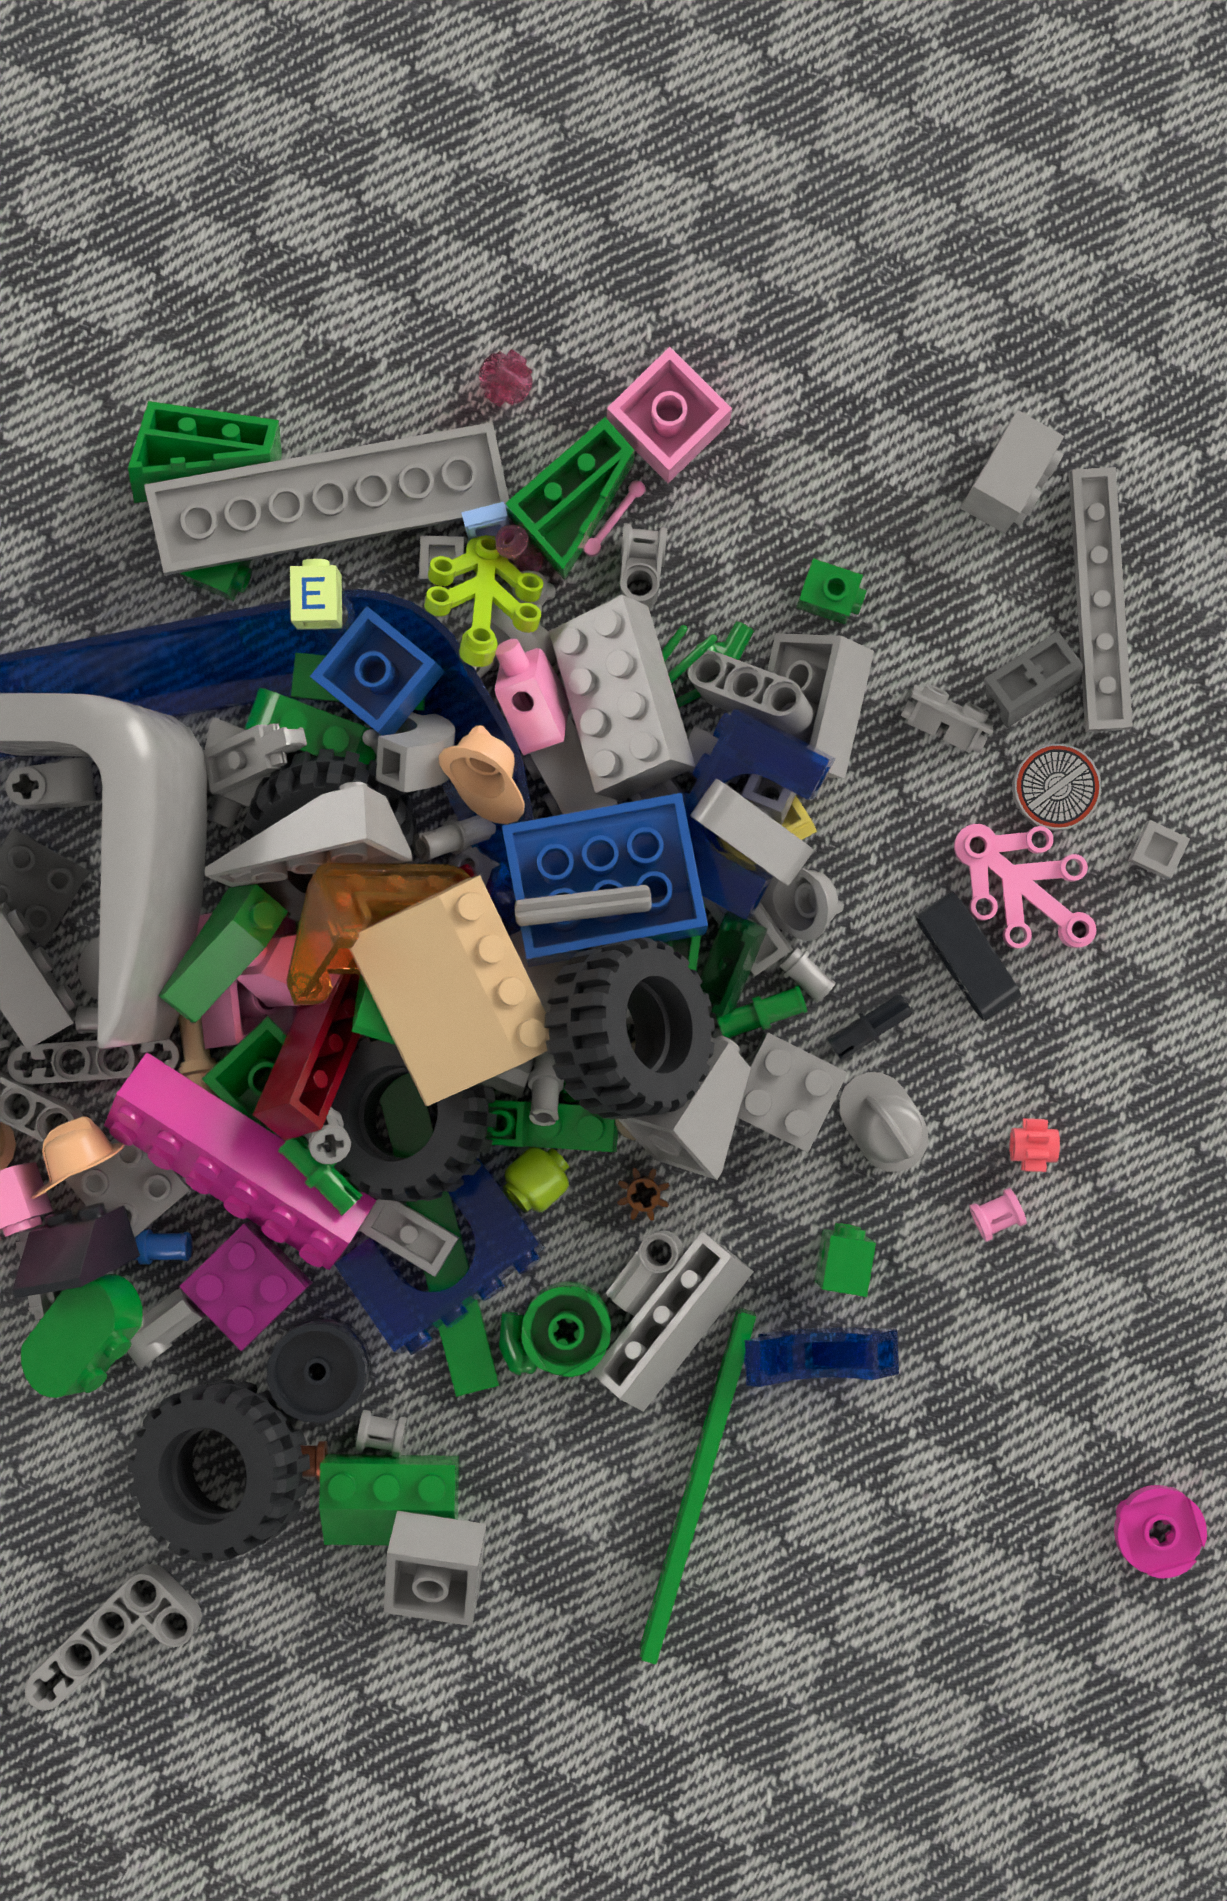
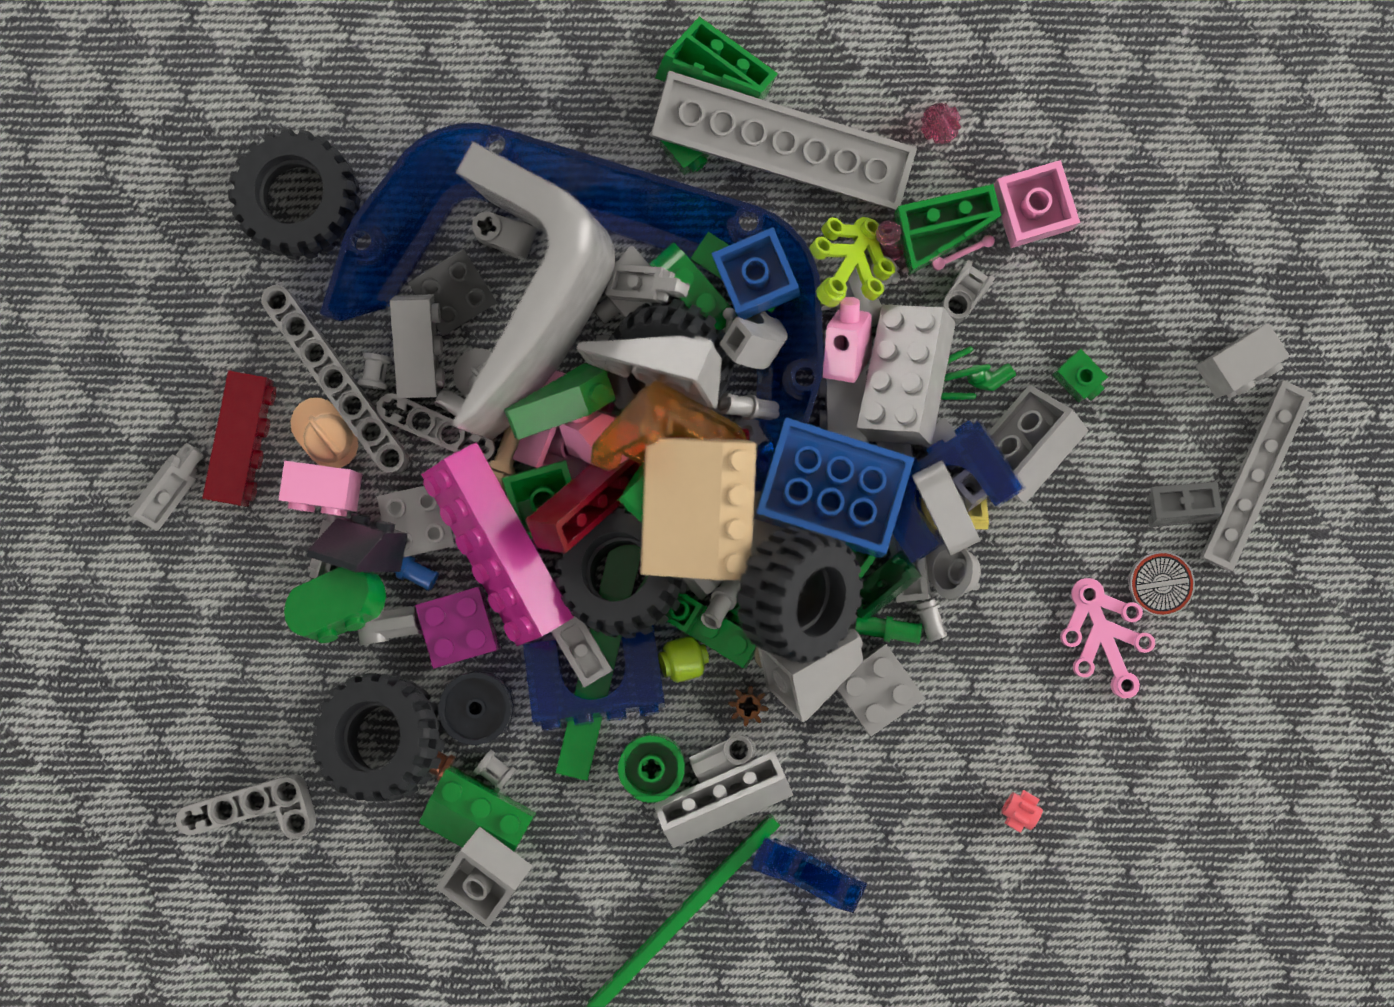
camera: 30 degrees right, 0 degrees up
(73, 1149) = (394, 479): light nougat piece -> none
(316, 595) = (743, 202): yellowish green brick -> none
(321, 1176) = (547, 581): green pin -> none
(334, 1136) = (570, 563): light grey bush -> none
(439, 546) = (836, 210): light grey plate -> none
(483, 775) = (790, 378): light nougat piece -> none
(485, 520) = (878, 210): light blue tile -> none
(511, 1346) = (608, 759): green arm -> none
(583, 905) = (811, 497): light grey axle -> none
(737, 678) = (991, 401): light grey beam -> none
(845, 1260) = (858, 820): green brick -> none
(869, 1027) = (954, 676): black axle -> none
(883, 1121) = (930, 743): light grey piece -> none
(964, 722) = (1108, 489): light grey hinge -> none
(968, 956) = (1044, 664): black beam -> none
(998, 1214) = (973, 844): bright pink bush -> none
(1158, 849) = (1207, 660): light grey plate -> none

